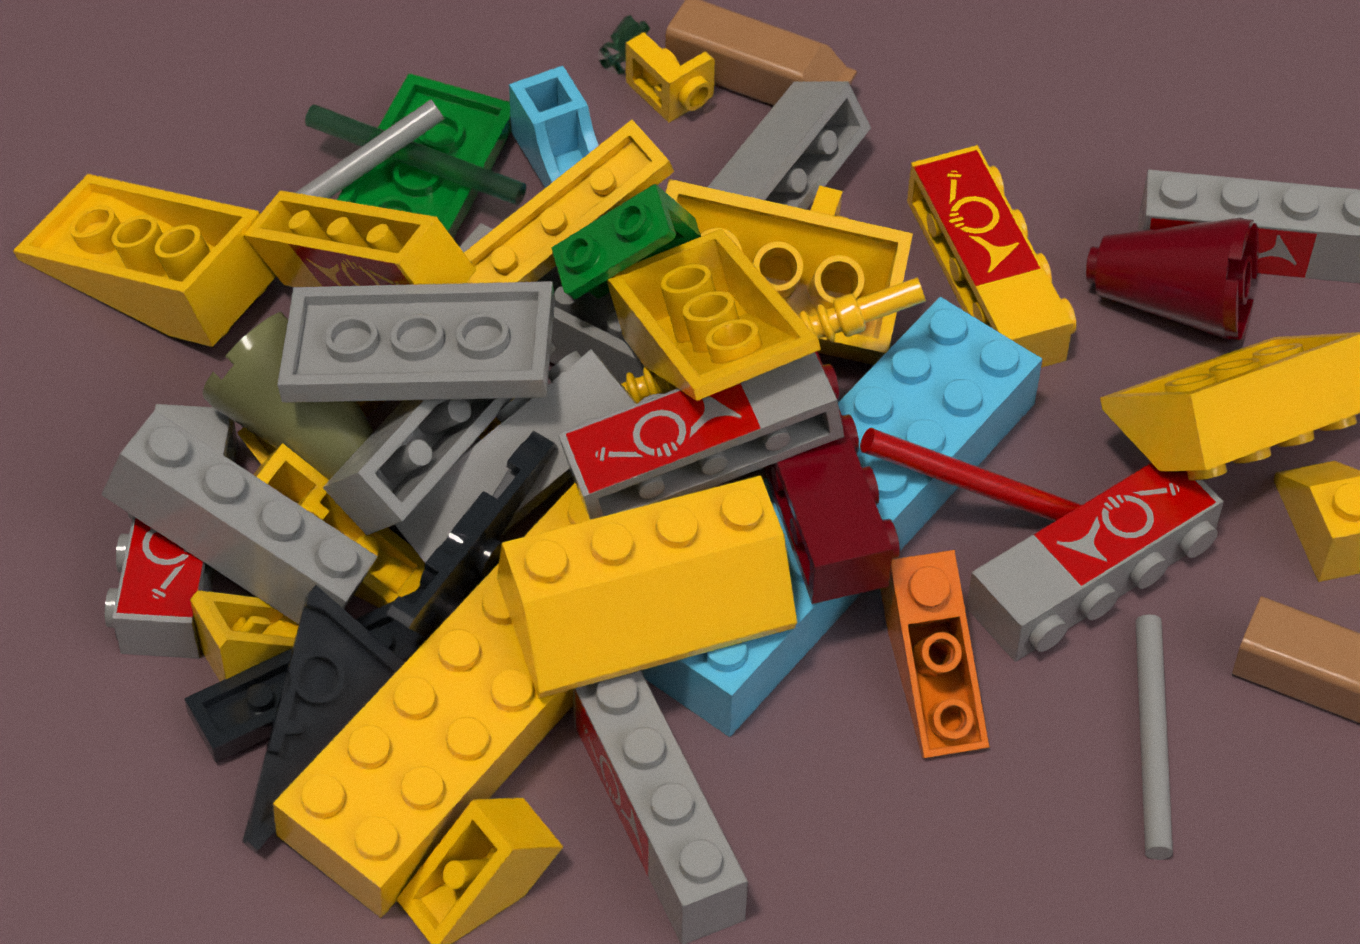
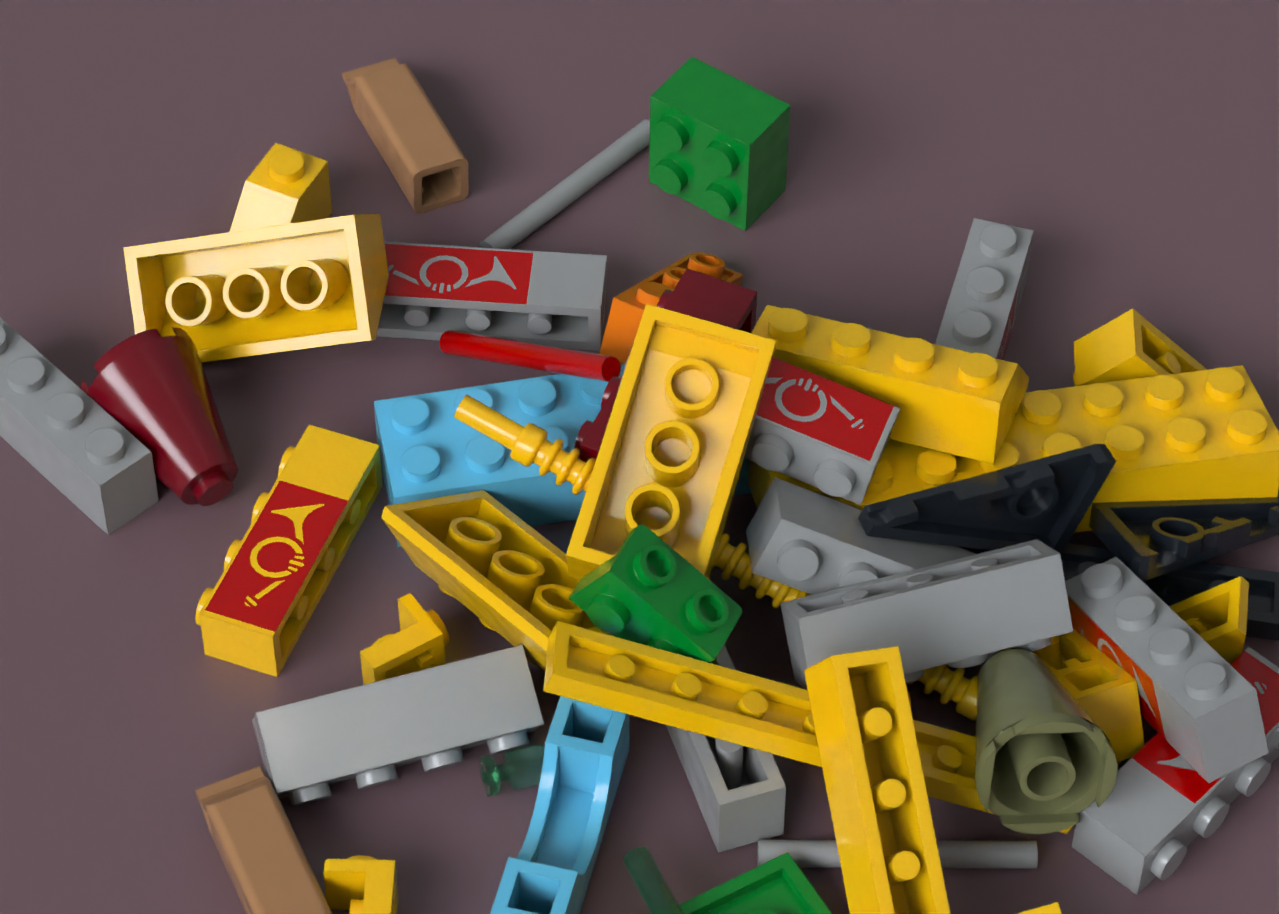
camera: 140 degrees left, 5 degrees down
(418, 342) = (907, 585): light grey plate -> none
(1053, 812) = (718, 143): none -> green brick

